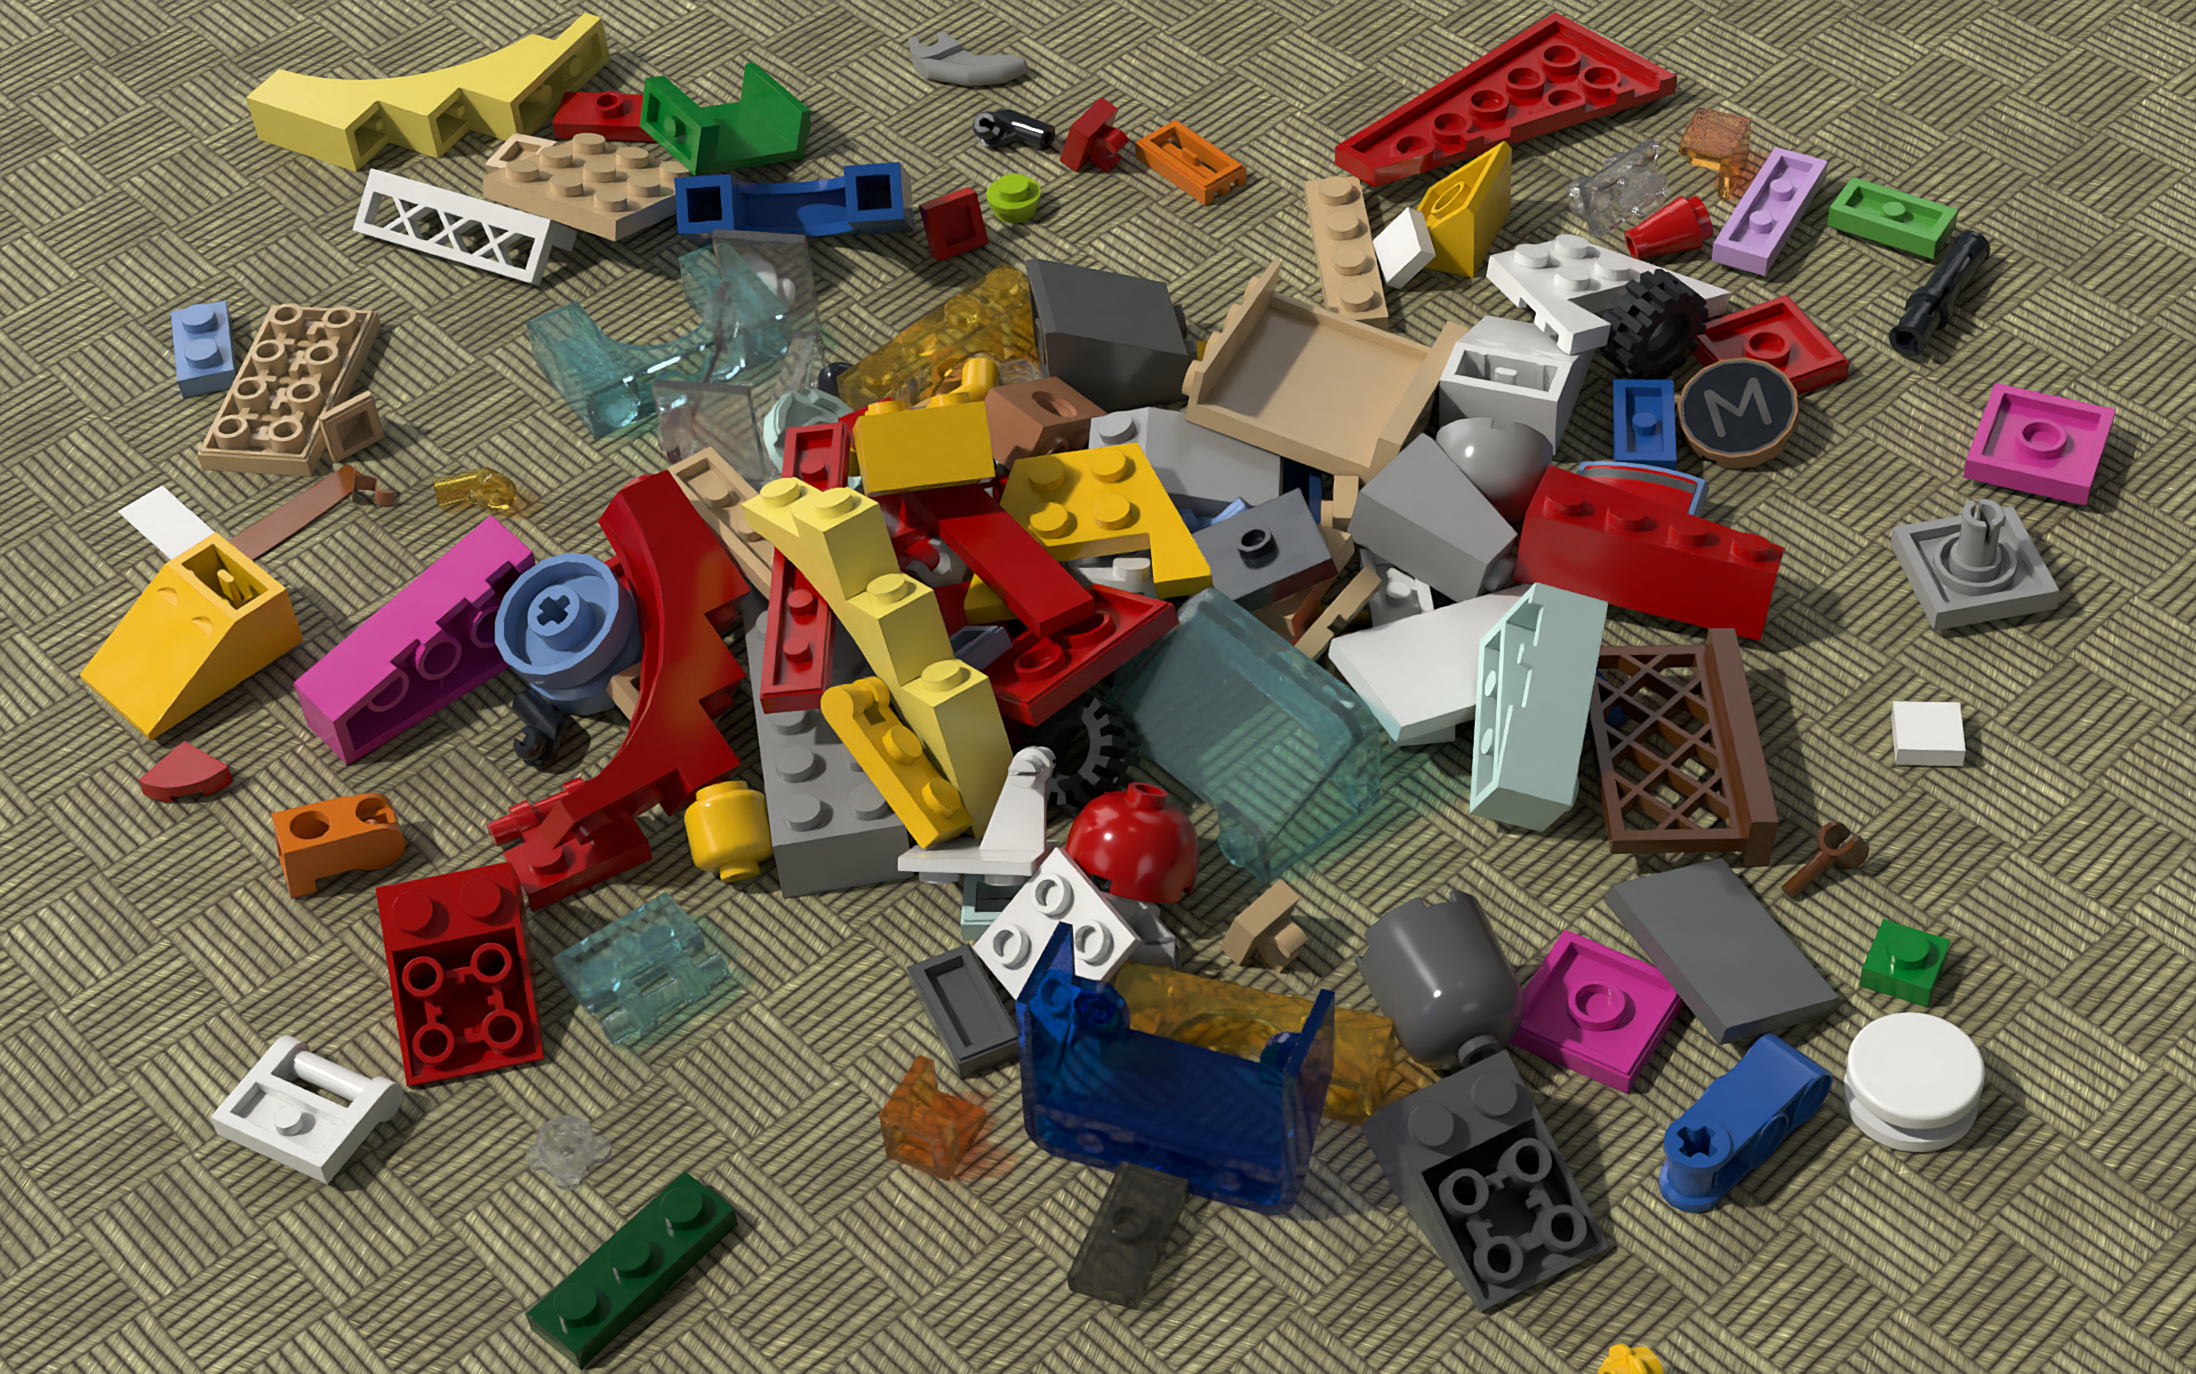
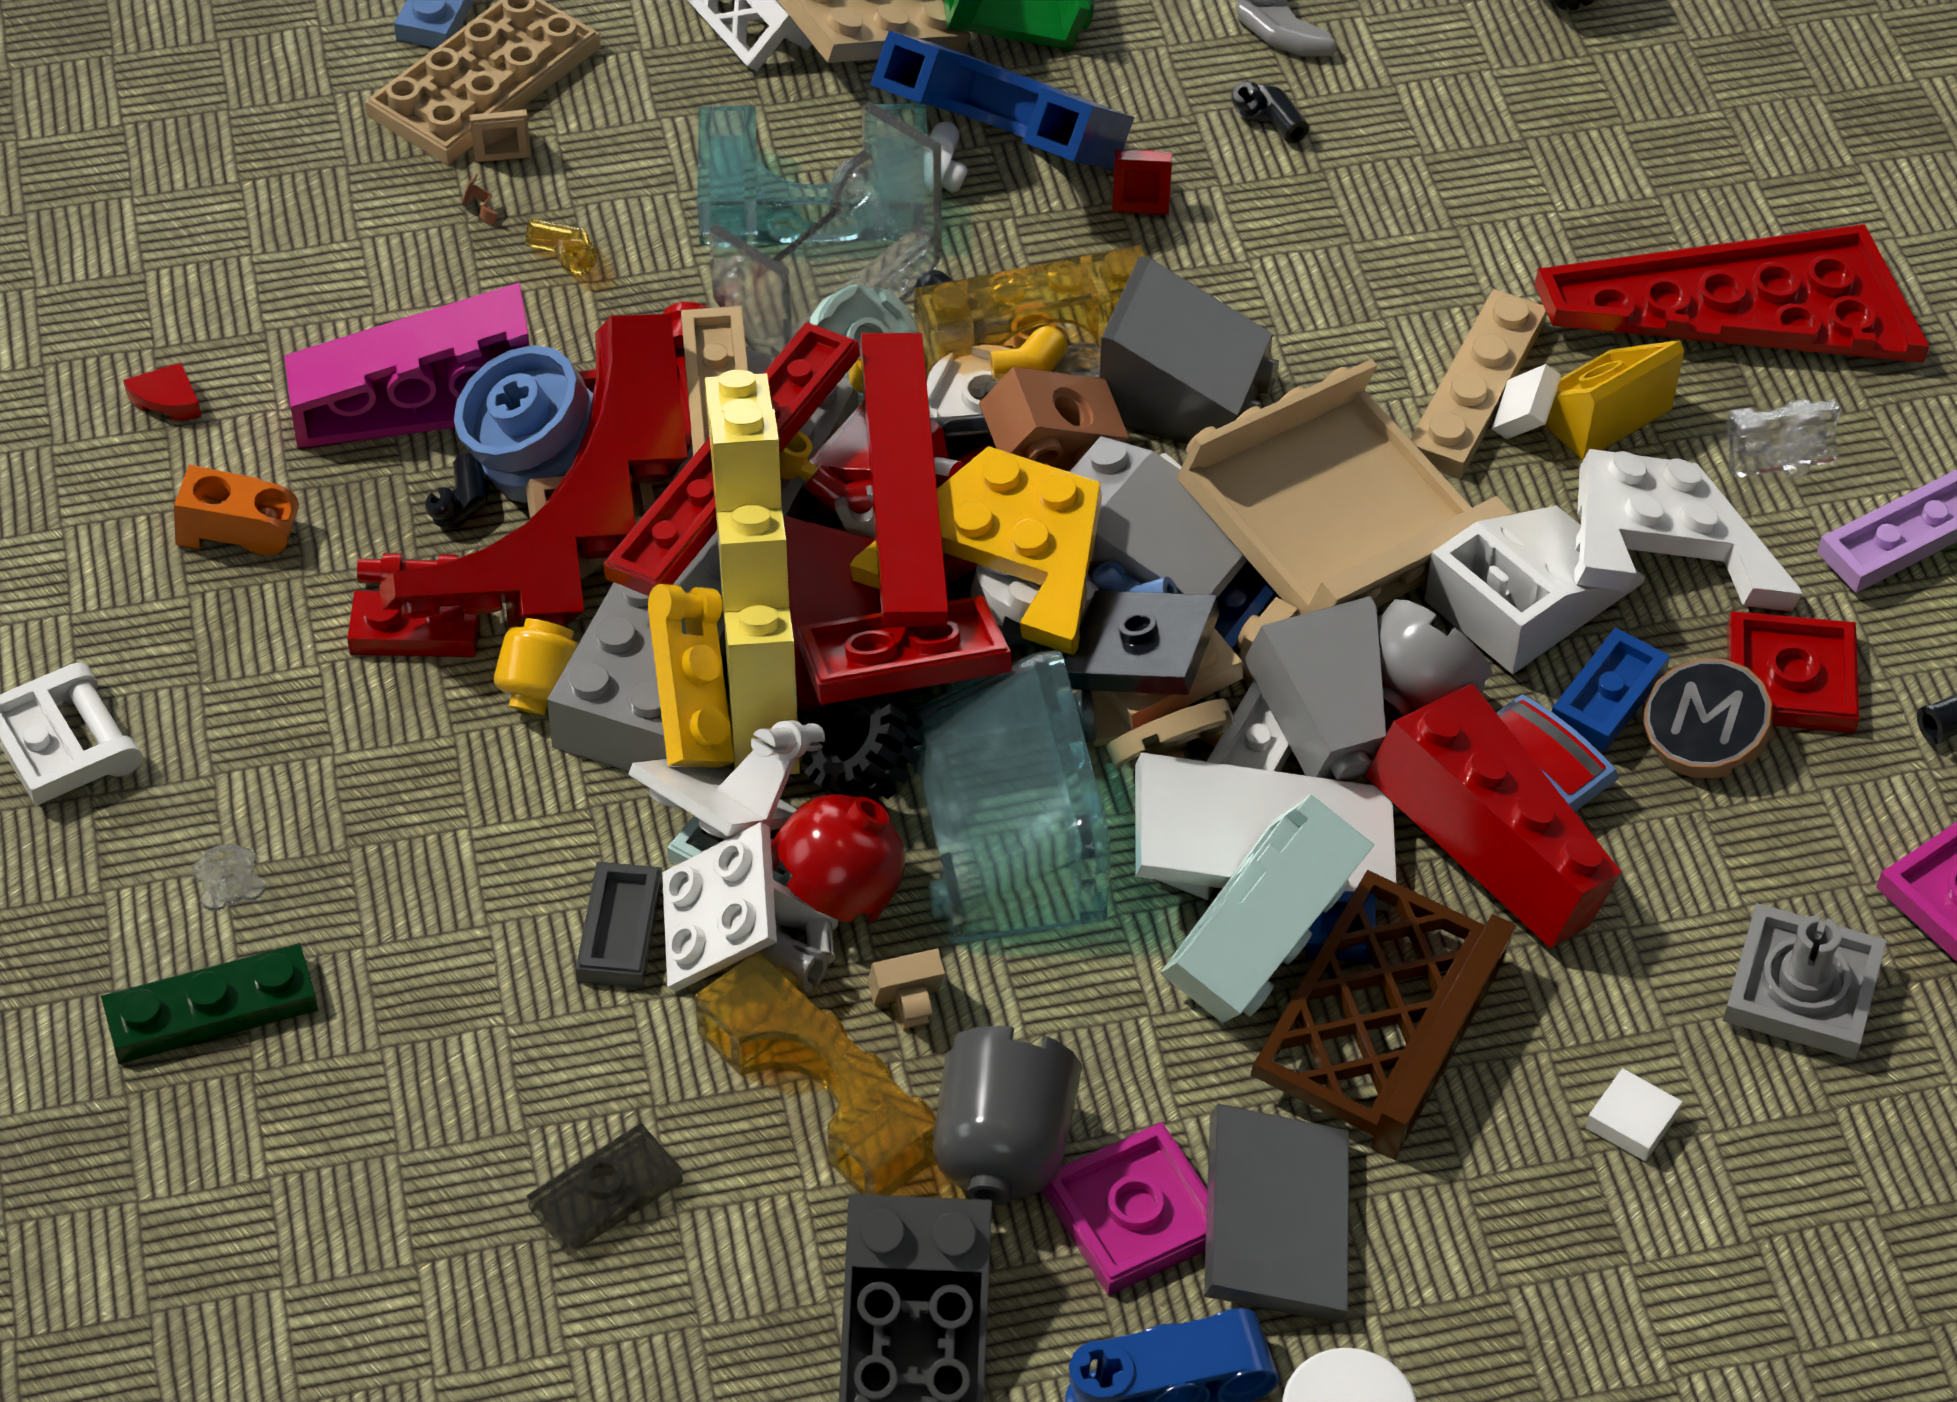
camera: 25 degrees right, 5 degrees up
(166, 522) = (306, 155): white sticker -> none
(192, 637) = (242, 272): yellow slope -> none
(295, 513) = (372, 201): sticker -> none
(461, 973) = (249, 680): red slope -> none
(633, 952) = (389, 734): clear light blue plate -> none
(923, 447) = (894, 402): yellow slope -> none
(927, 1125) = (517, 1004): clear orange panel -> none
(980, 645) = (825, 606): sand blue tile -> none
(1014, 198) = (1221, 180): lime plate -> none
(1094, 139) = (1332, 154): red tile -> none
(1164, 1104) = (691, 1079): clear blue windscreen -> none
(1182, 165) = (1416, 247): orange tile -> none
(1654, 325) = (1686, 594): black tyre -> none
(1671, 230) = (1795, 503): red cone -> none
(1718, 143) = (1911, 439): clear orange panel -> none
(1829, 840) = (1455, 1173): reddish brown hand -> none
(1905, 963) = (1436, 1312): green plate -> none

